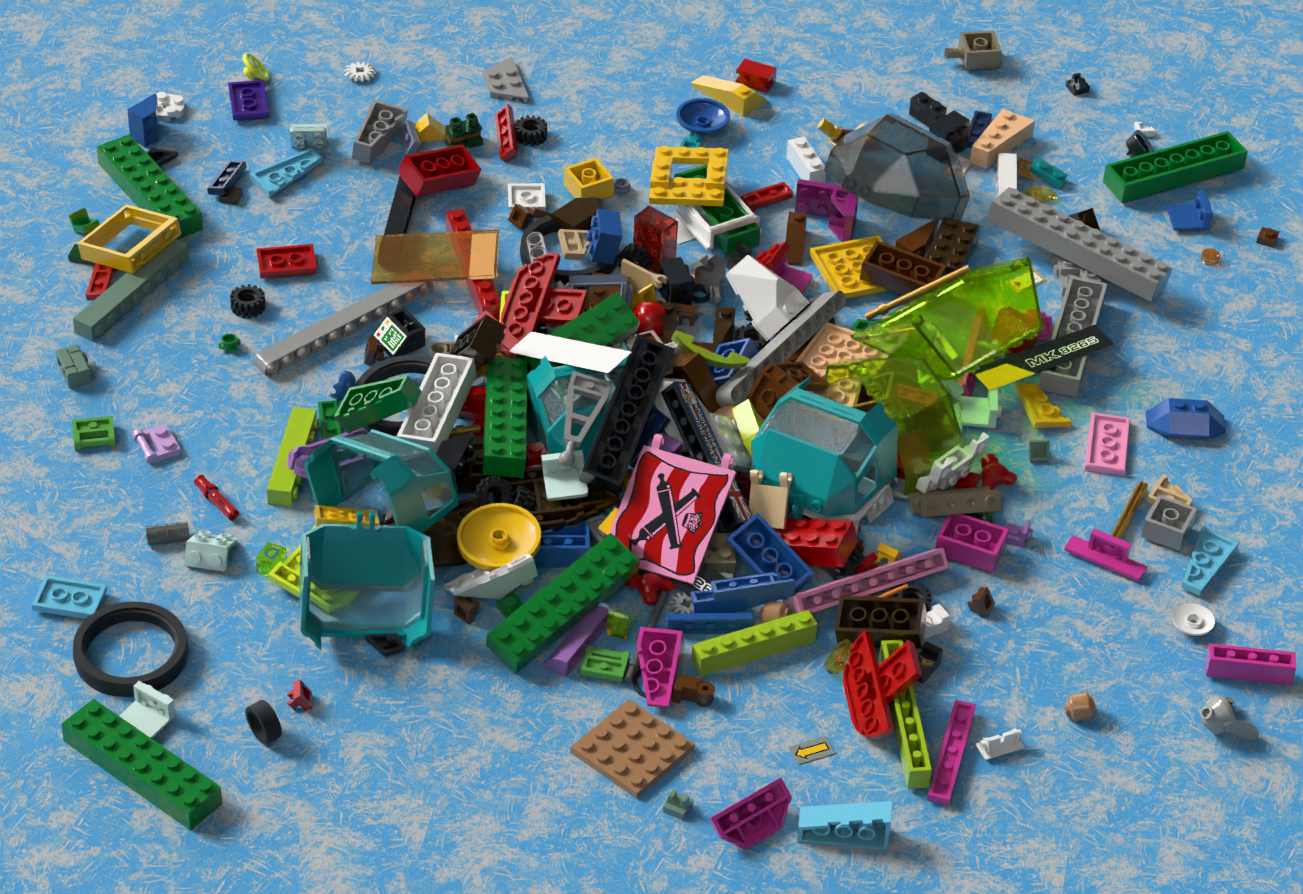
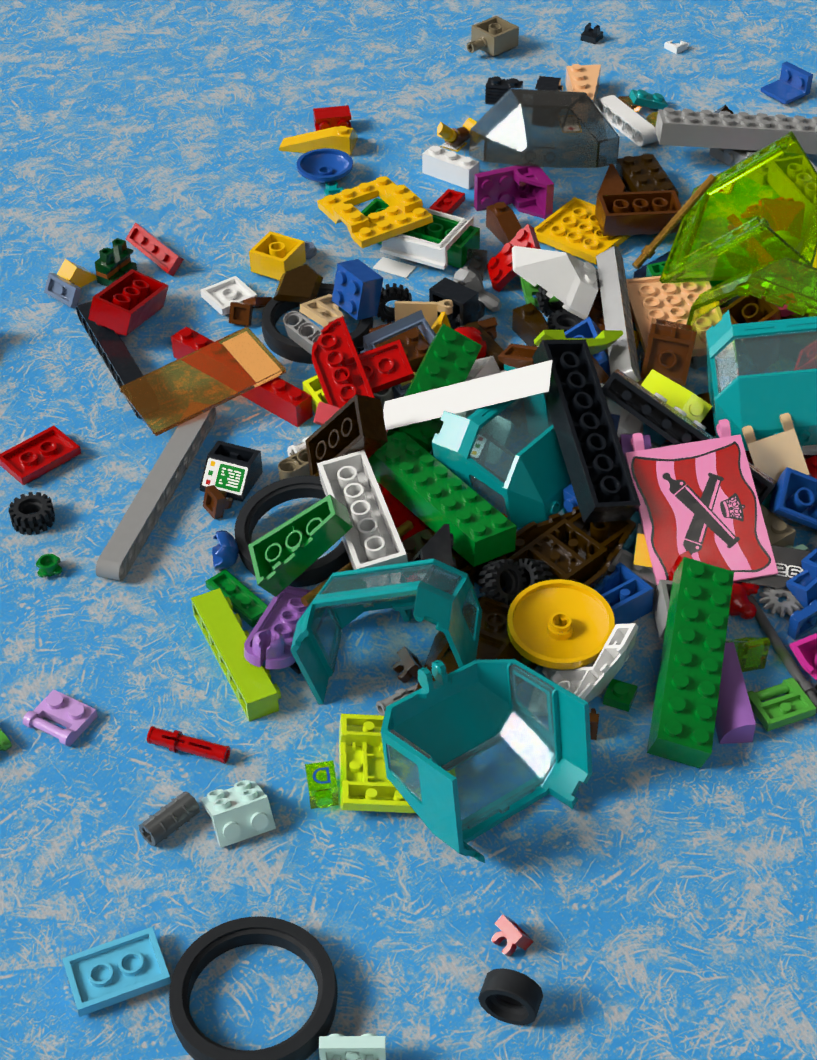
camera: 30 degrees left, 0 degrees up
(341, 515) = (368, 690): yellow plate -> none
(377, 130) = (24, 294): light grey wedge -> none
(386, 644) = (538, 811): black piece -> none
(504, 81) = (108, 210): light grey wing -> none
(531, 130) = (176, 237): black tyre -> none
(563, 481) = (563, 527): light aqua bracket -> none
(591, 388) = (530, 419): light grey plate -> none
(657, 234) = (401, 265): clear red brick -> none
(1138, 144) = (692, 56): black piece -> none
(1174, 166) = (736, 59): green brick -> none

